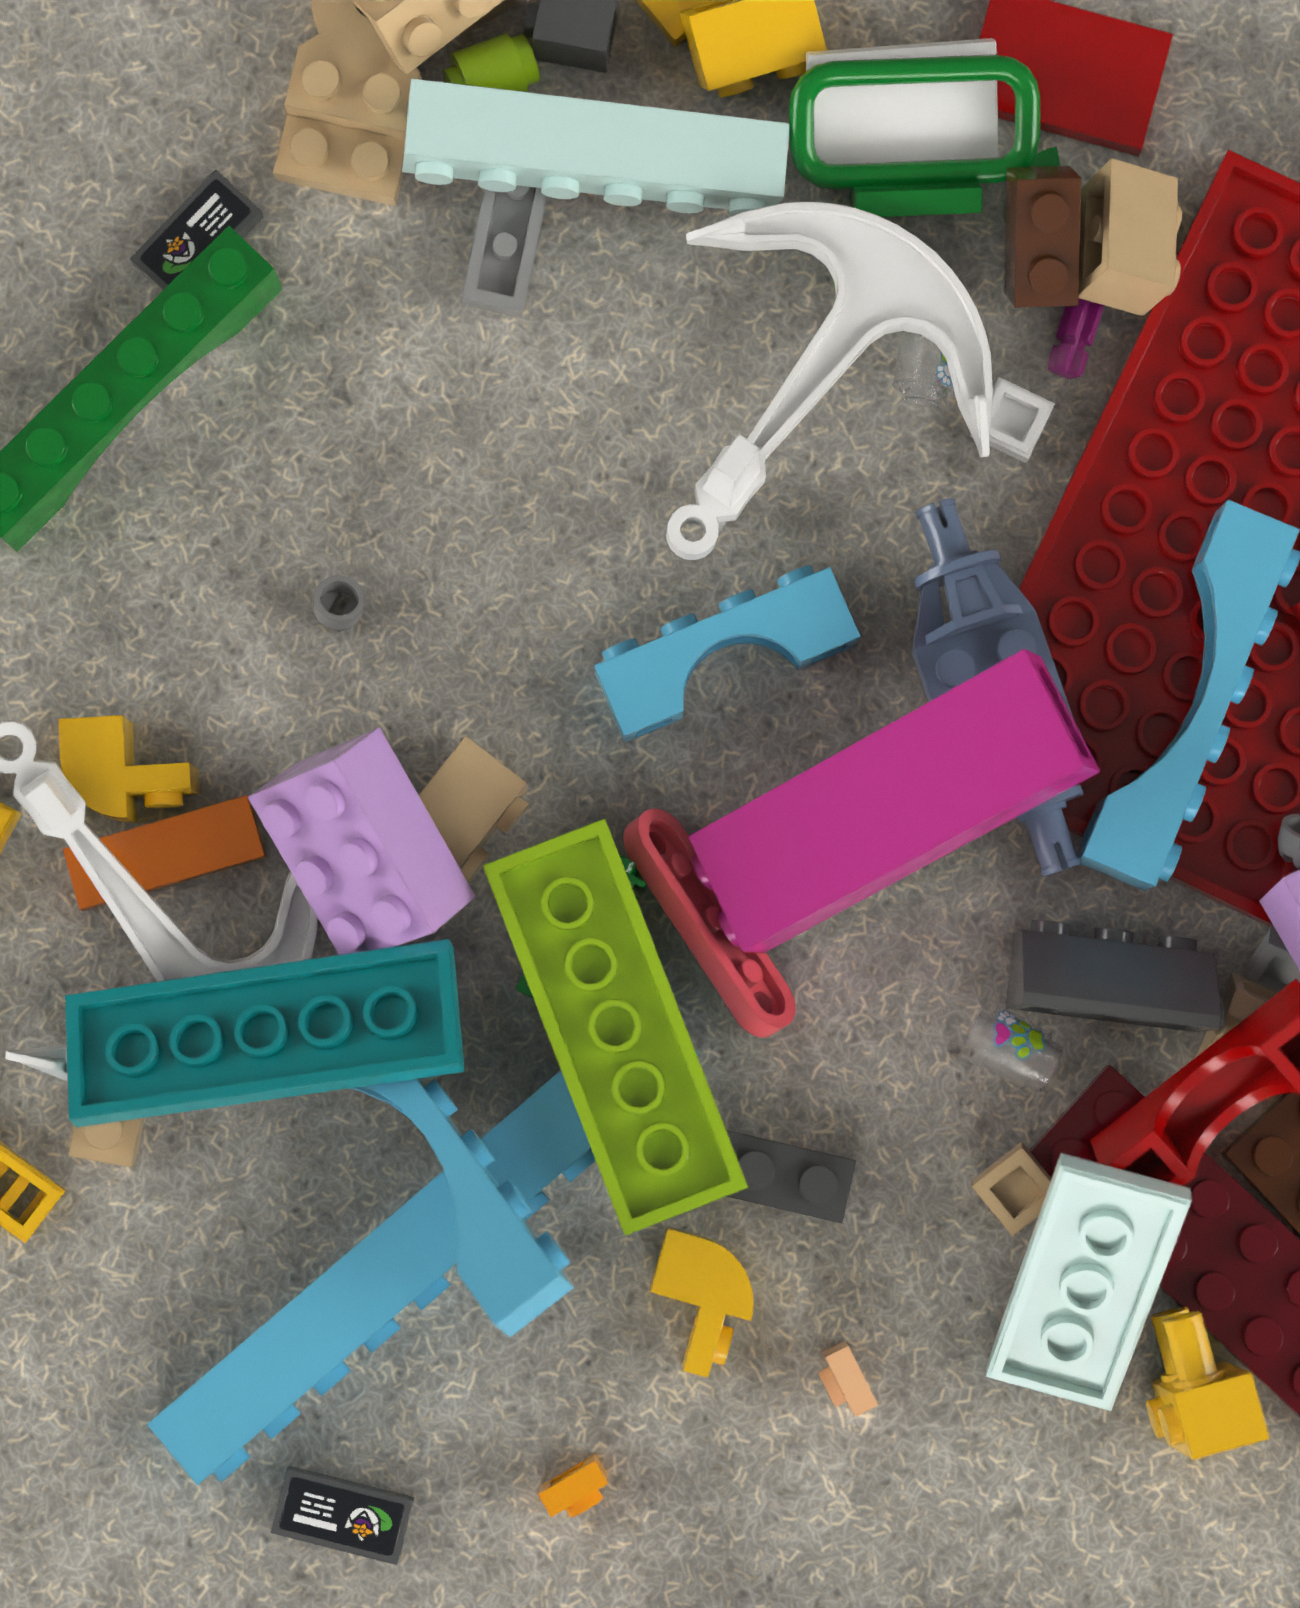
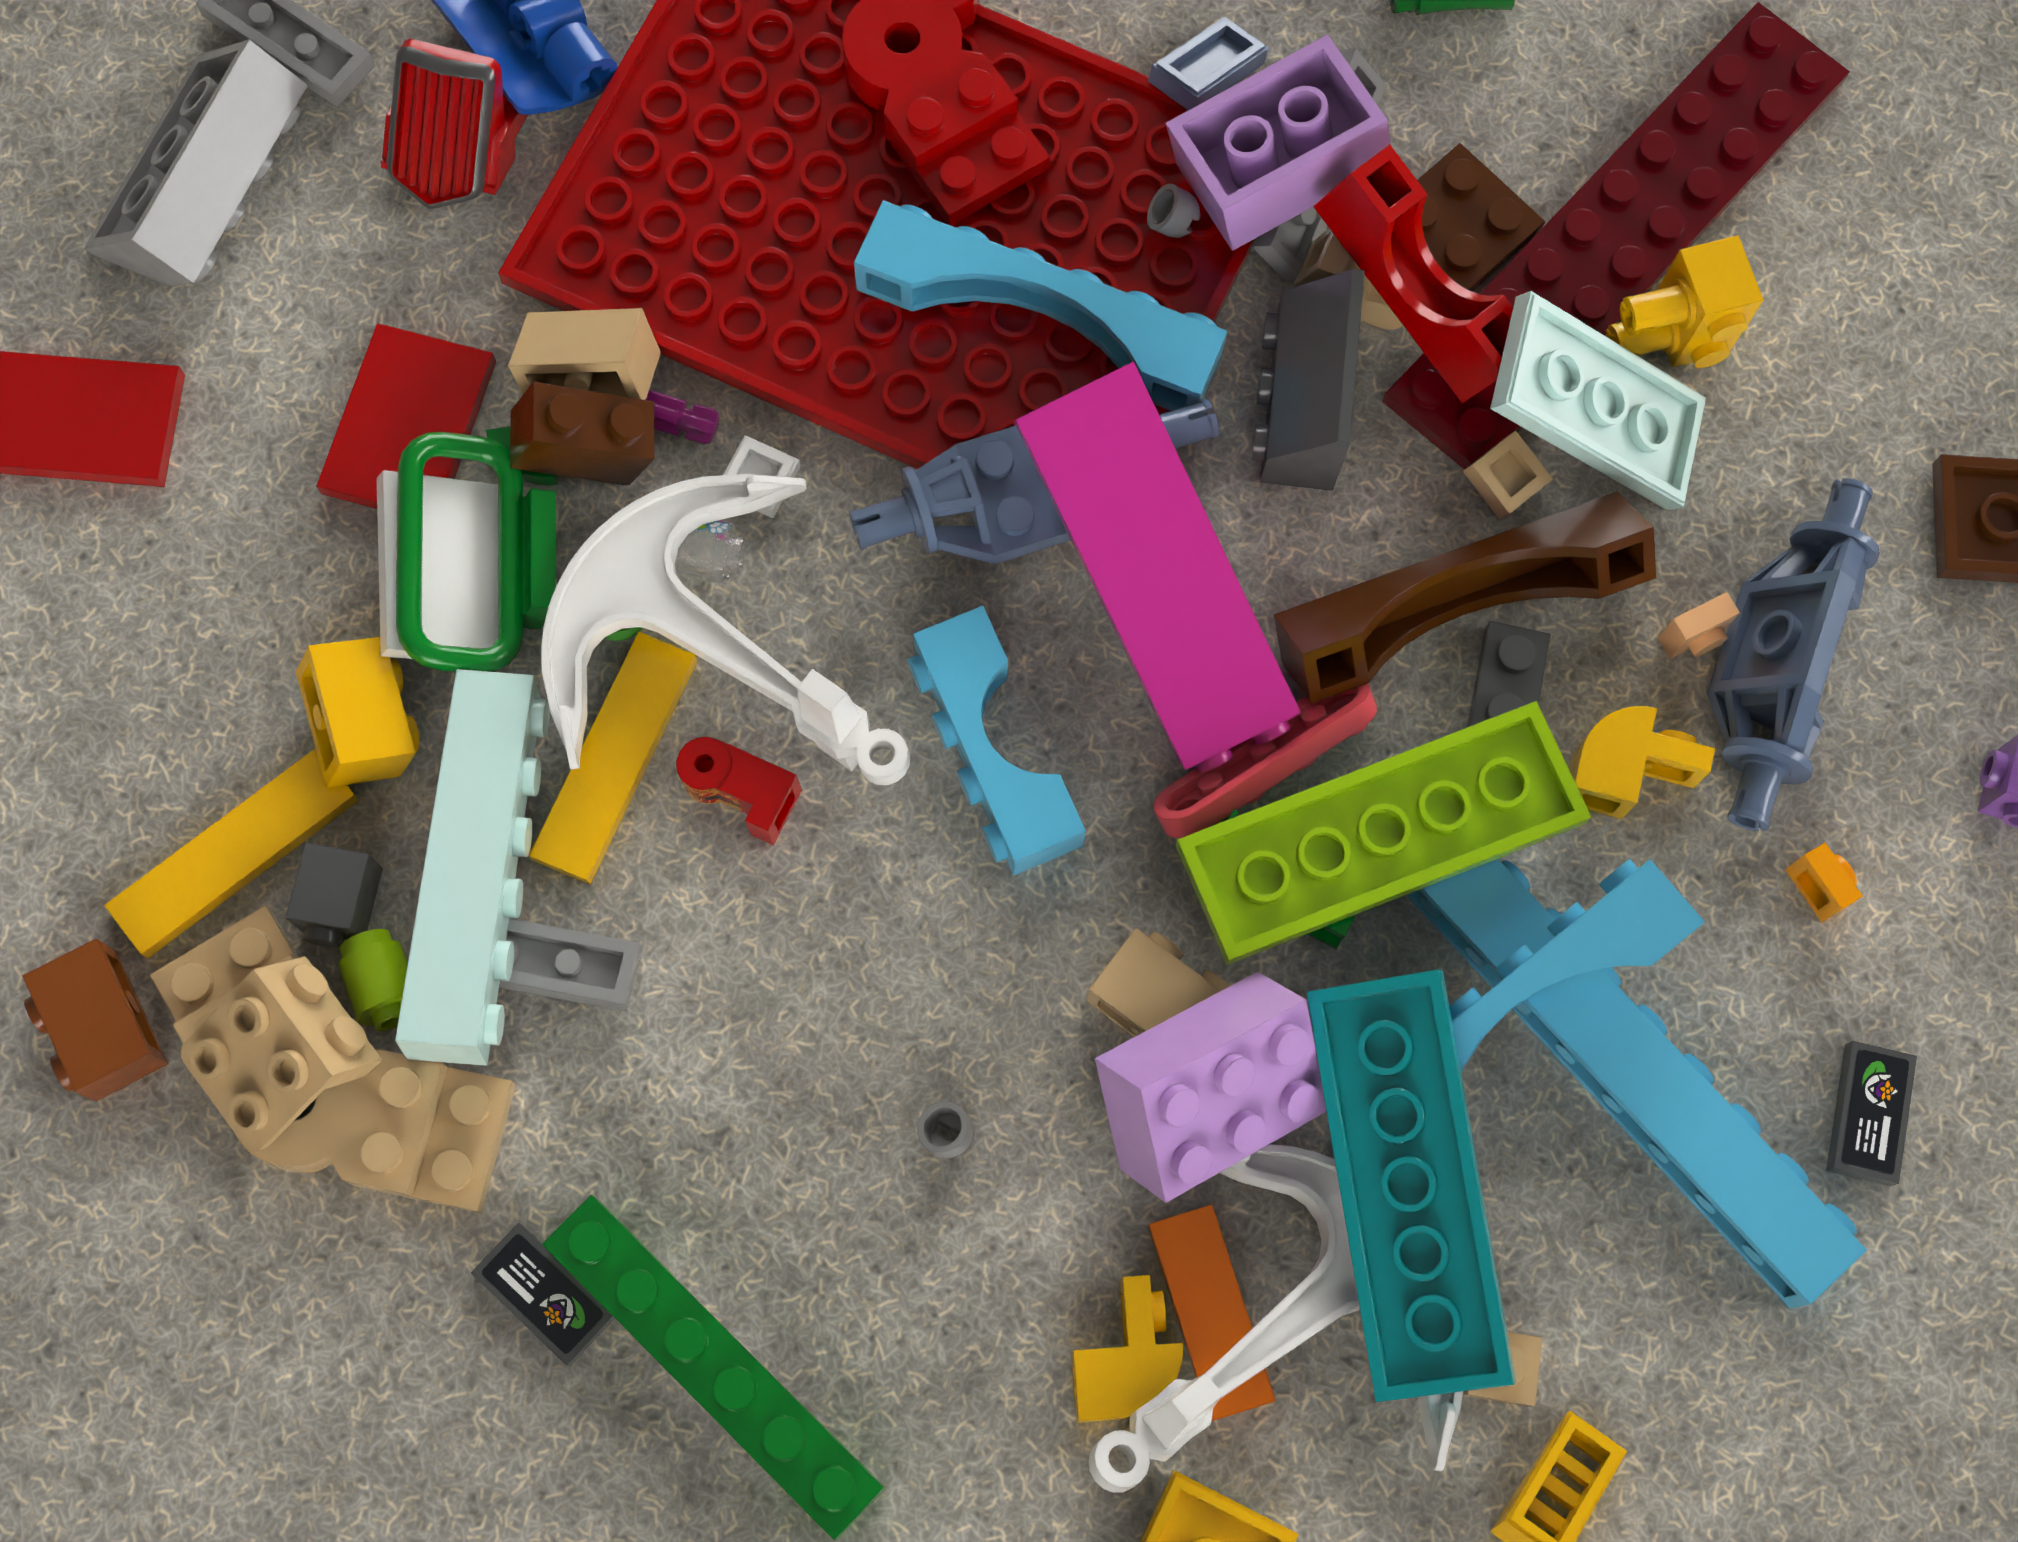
camera: 90 degrees left, 10 degrees down
(684, 409) = (729, 775): none -> red leg
(709, 282) = (614, 758): none -> yellow tile
(825, 1463) = (1783, 651): none -> sand blue plate
(925, 1248) = (1572, 553): none -> reddish brown arch
(1012, 1048) = (1375, 476): clear brick -> none

